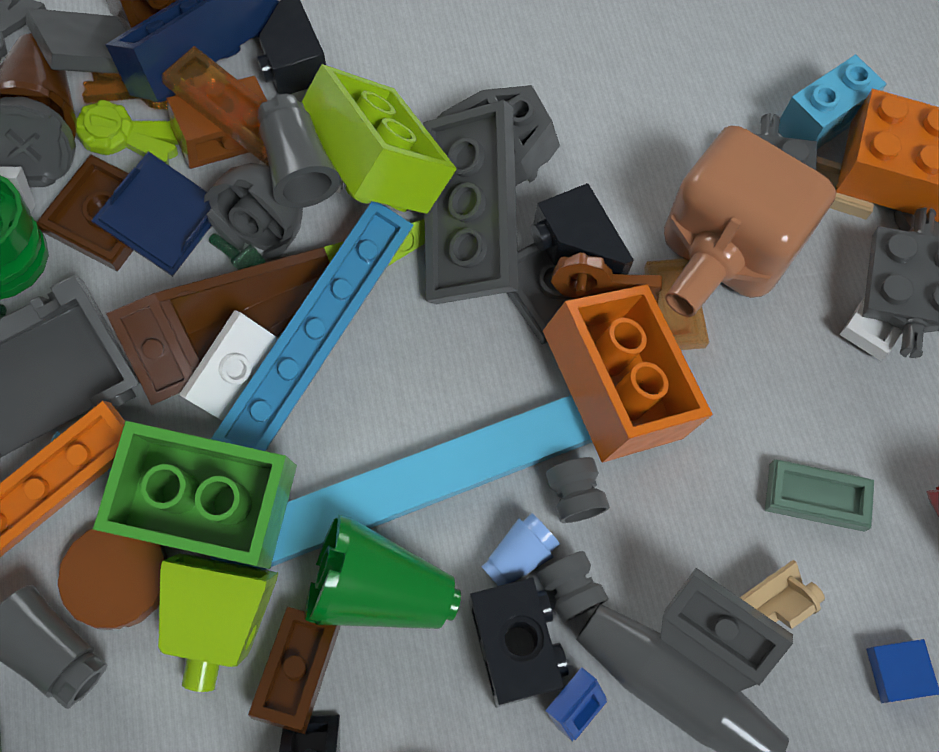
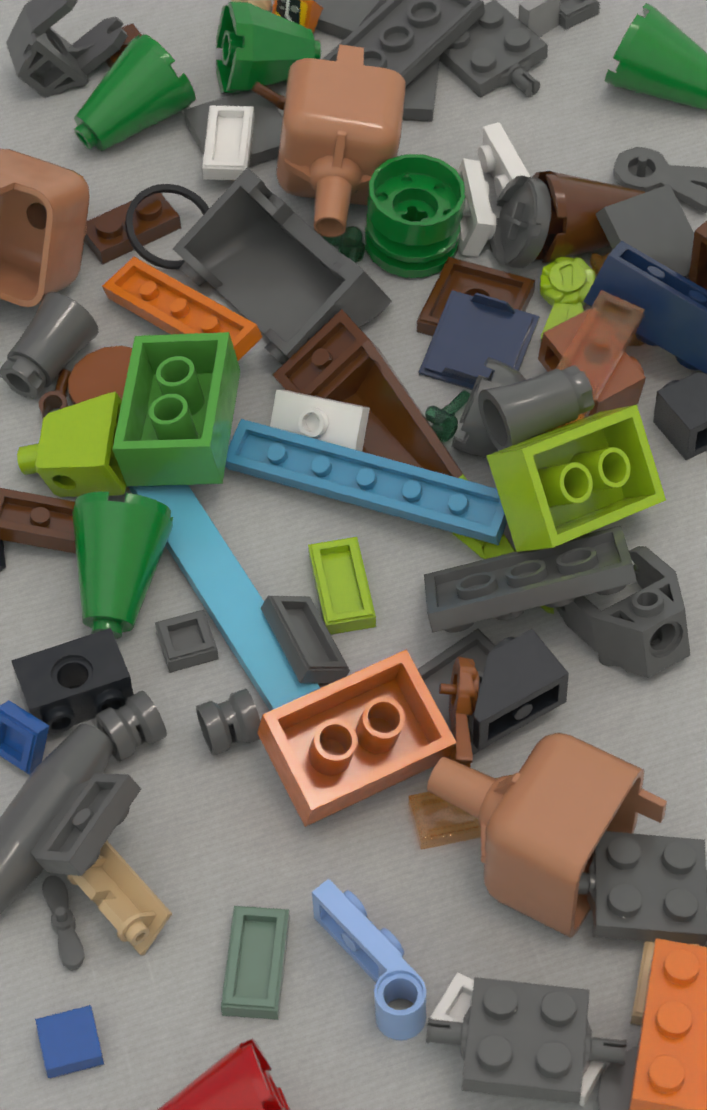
camera: 90 degrees right, 15 degrees down
(111, 641) = (57, 398): none -> reddish brown hand
(421, 375) = (342, 585): none -> lime tile
(465, 527) = (186, 640): none -> dark grey tile
(489, 412) = (304, 639): none -> dark grey tile
(521, 551) = (168, 684): light blue cone -> none
(800, 666) = (63, 922): none -> dark grey piece
(826, 385) = (378, 955): none -> light blue plate

